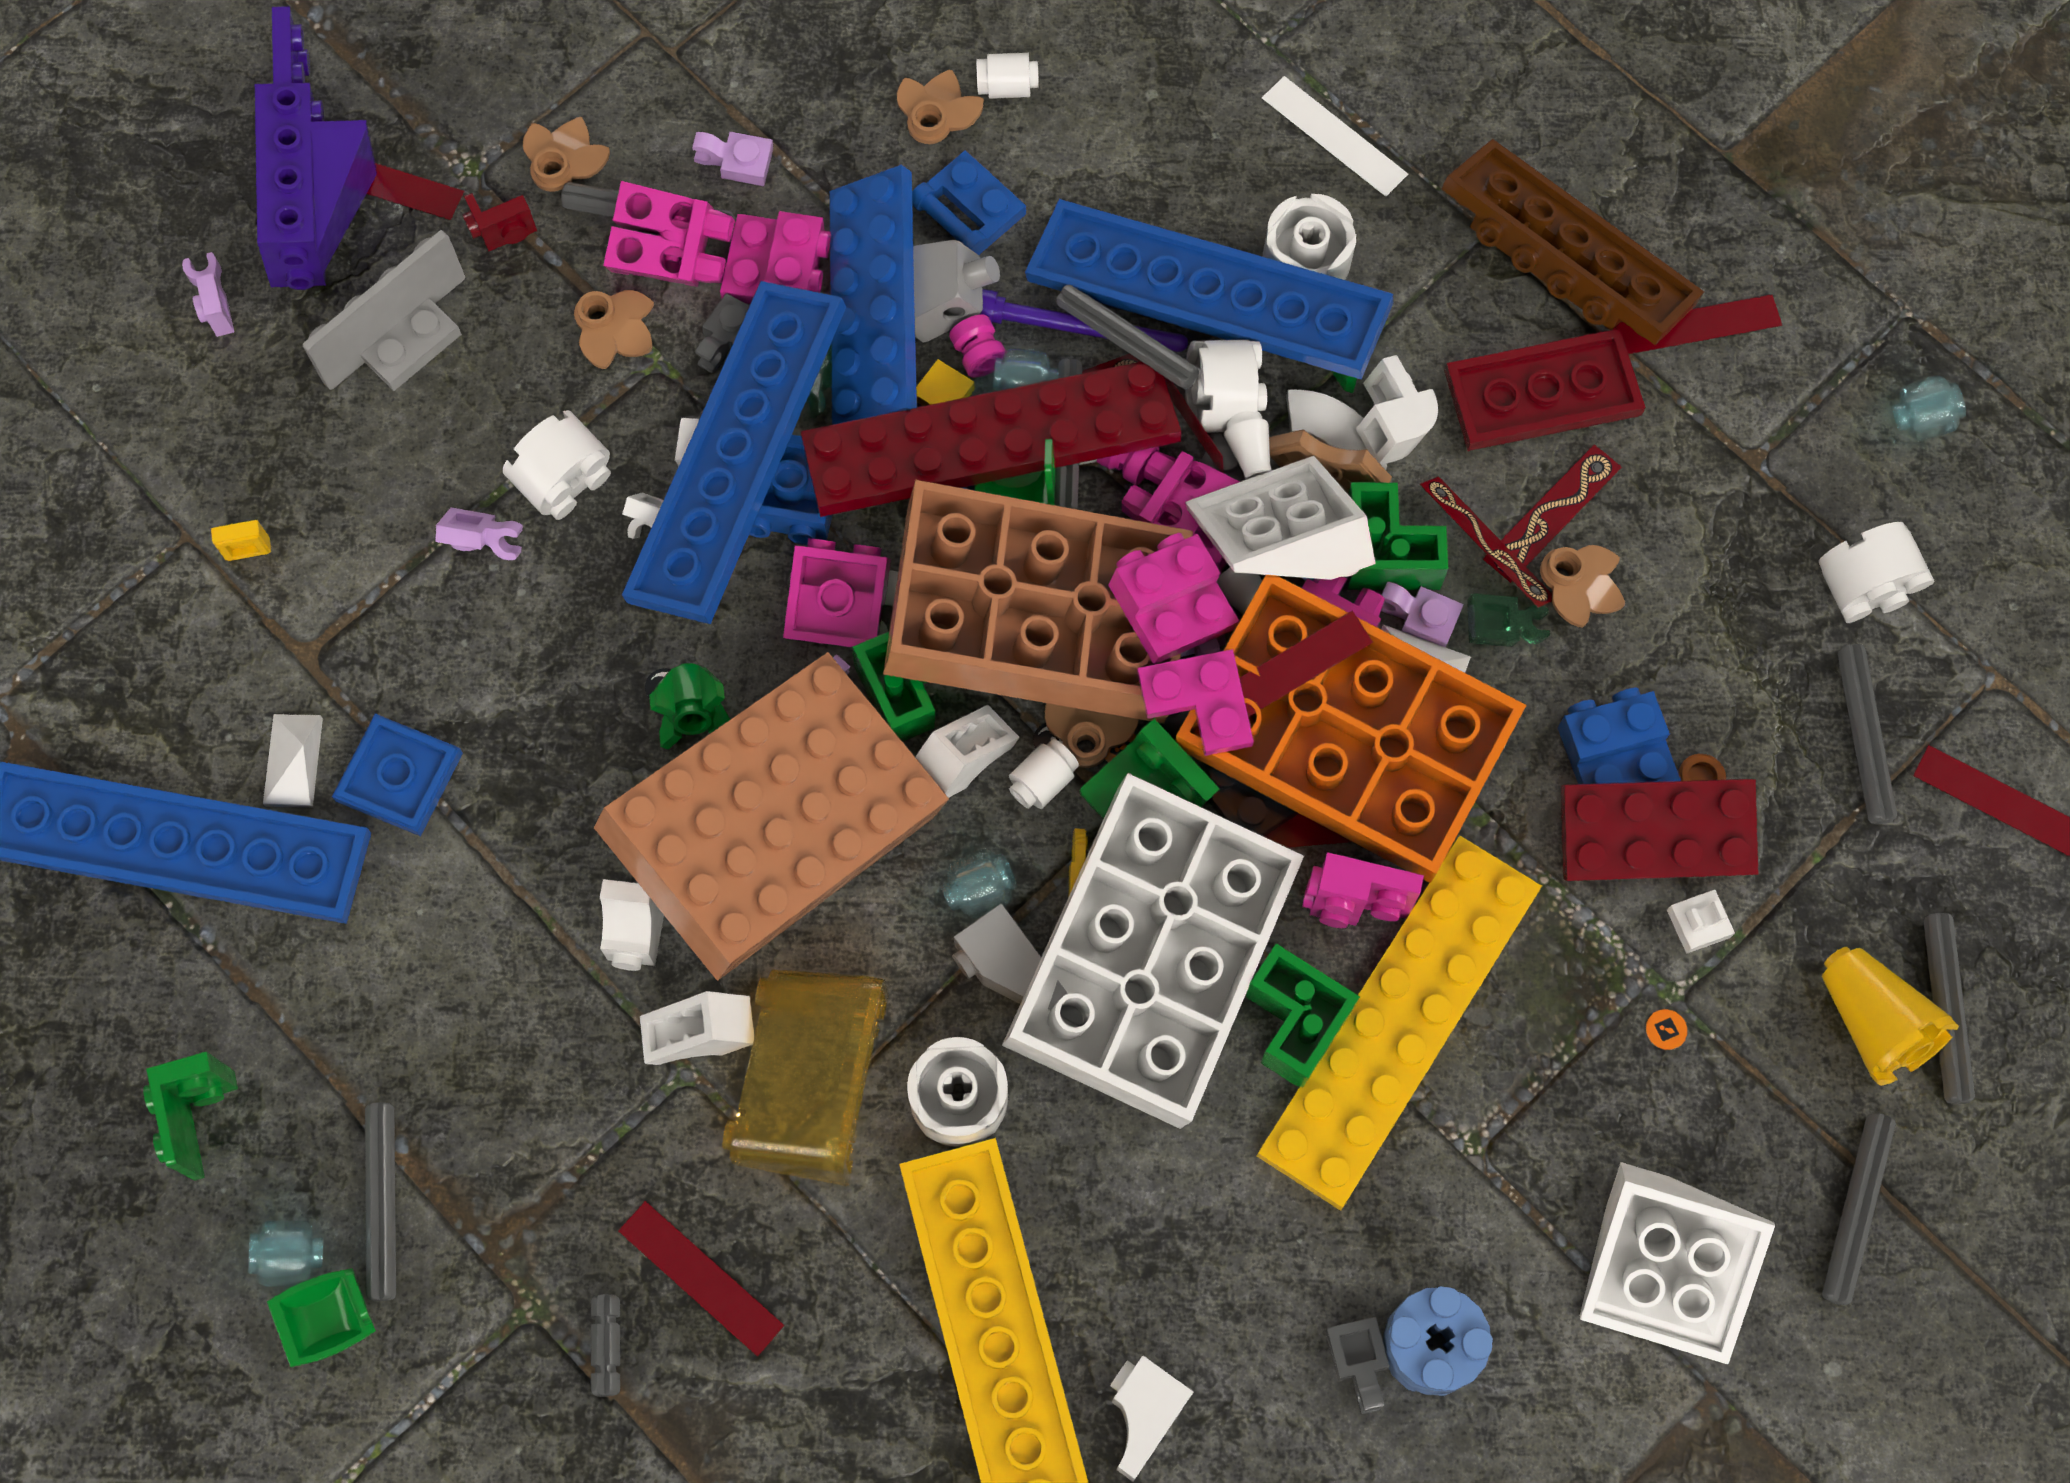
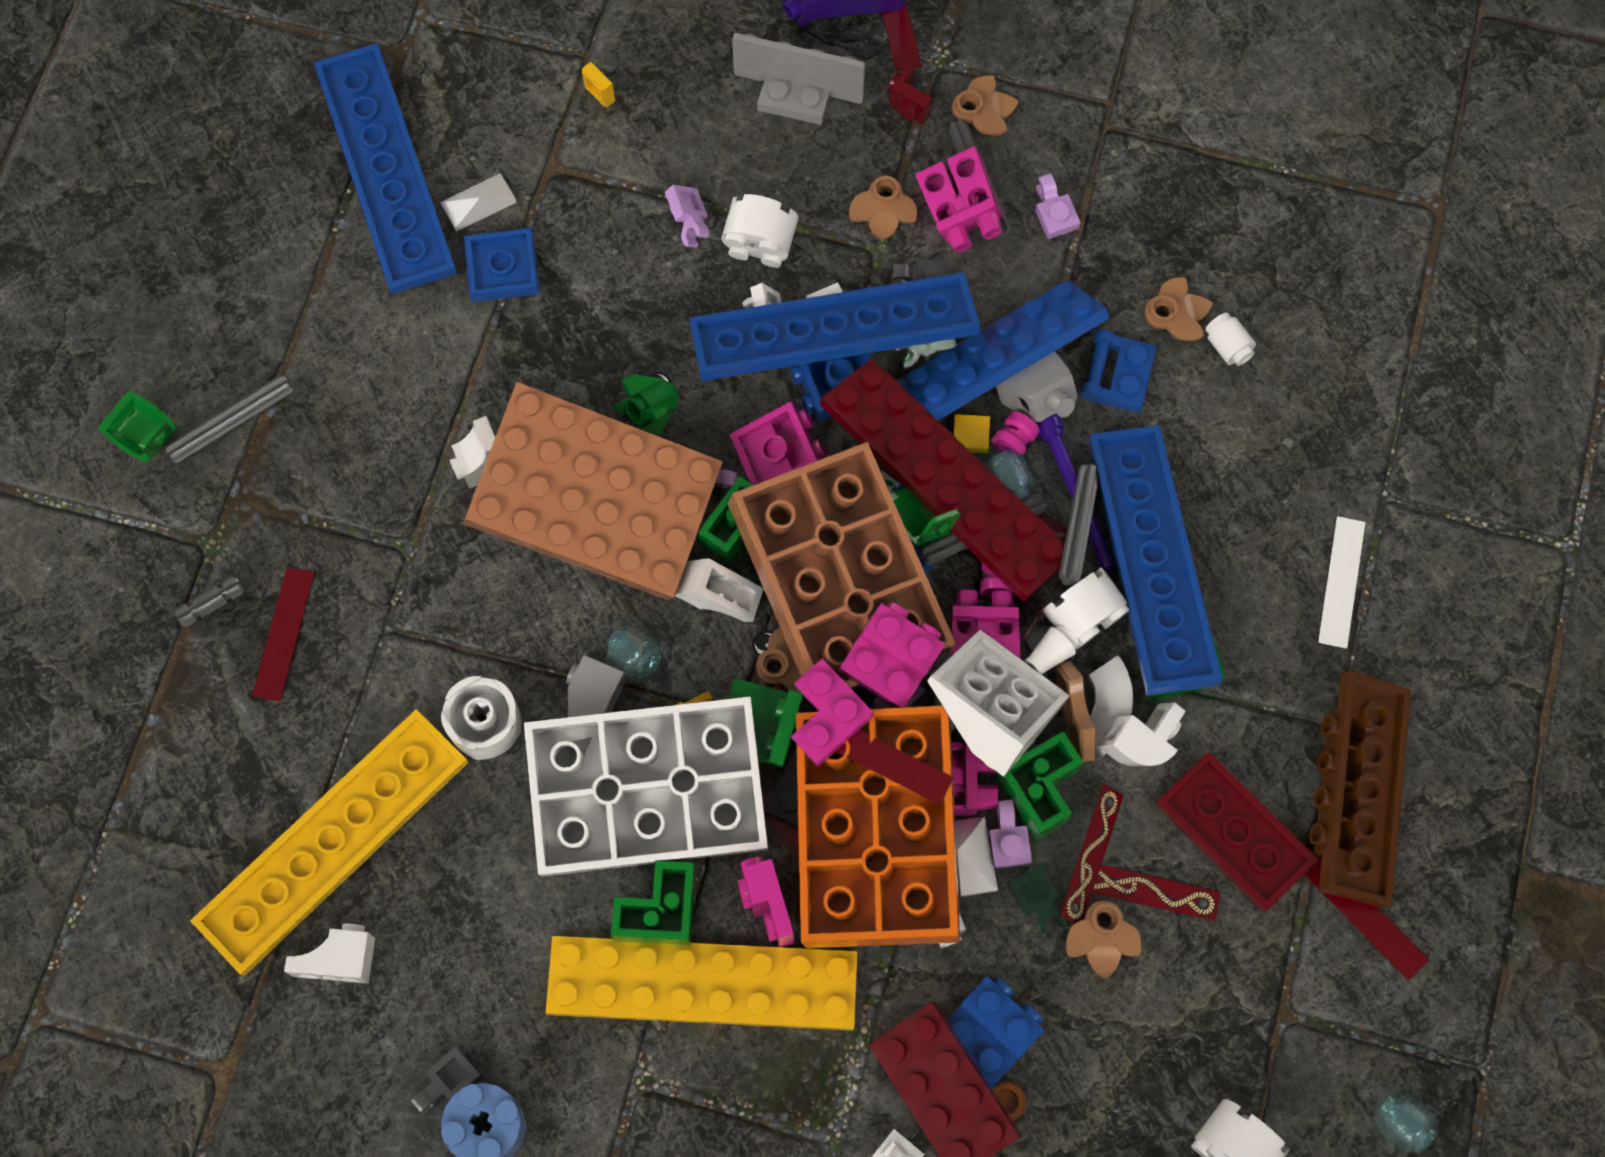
camera: 60 degrees right, 0 degrees up
(170, 1091) = (212, 270): green bracket -> none
(284, 1253) = (165, 383): clear light blue head -> none
(697, 1027) = (437, 536): white arch -> none
(775, 252) = (997, 275): dark pink plate -> none
(807, 1074) = (442, 617): clear yellow windscreen -> none
(1043, 774) = (733, 650): white brick -> none
(1312, 235) = (1252, 606): white brick -> none

